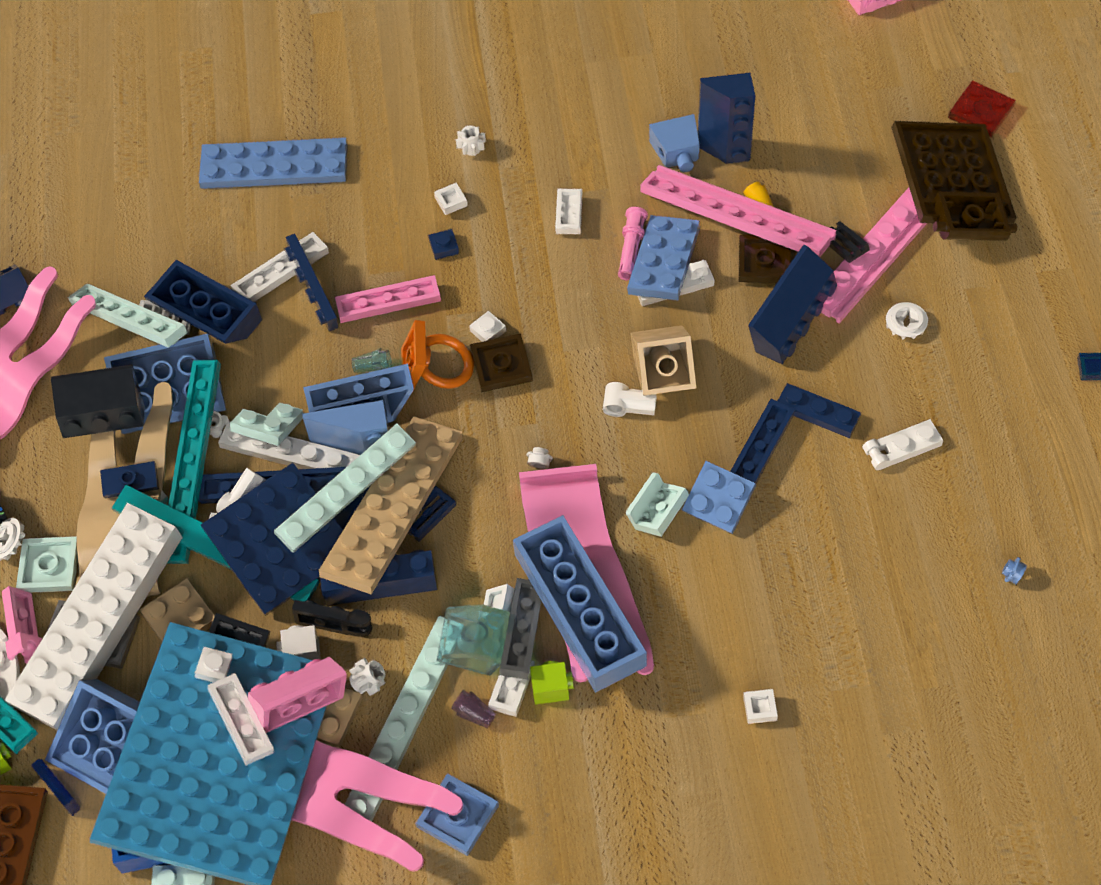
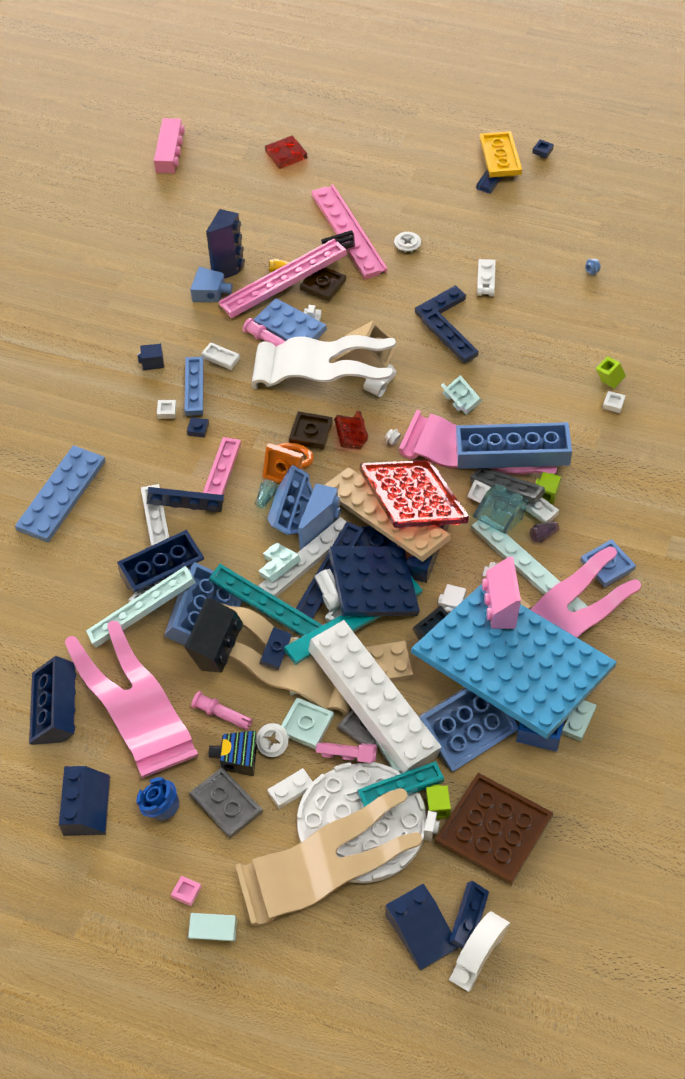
camera: 65 degrees left, 5 degrees down
(32, 458) = (212, 707): none -> bright pink pin
(56, 786) = (483, 766): clear blue tile -> none
(213, 665) = (458, 632): white plate -> none
(240, 719) = (504, 630): white plate -> none
(332, 618) = (442, 578): black hinge -> none
(344, 488) = (365, 528): light aqua plate -> none
(428, 518) = (413, 494): none -> clear red plate
(470, 140) = (128, 381): white gear -> none
(487, 327) = (278, 429): white plate -> none
(503, 208) = (194, 385): none -> medium blue plate
(520, 405) = (351, 430): none -> clear red bracket
(523, 143) = (151, 356): none -> dark blue brick
(595, 294) = (311, 360): none -> white flag
(719, 497) = (473, 365): medium blue plate -> none
(792, 306) = (372, 279): dark blue slope -> none
(806, 677) = (610, 372): none -> lime brick
(955, 180) = (332, 179): dark brown plate -> none

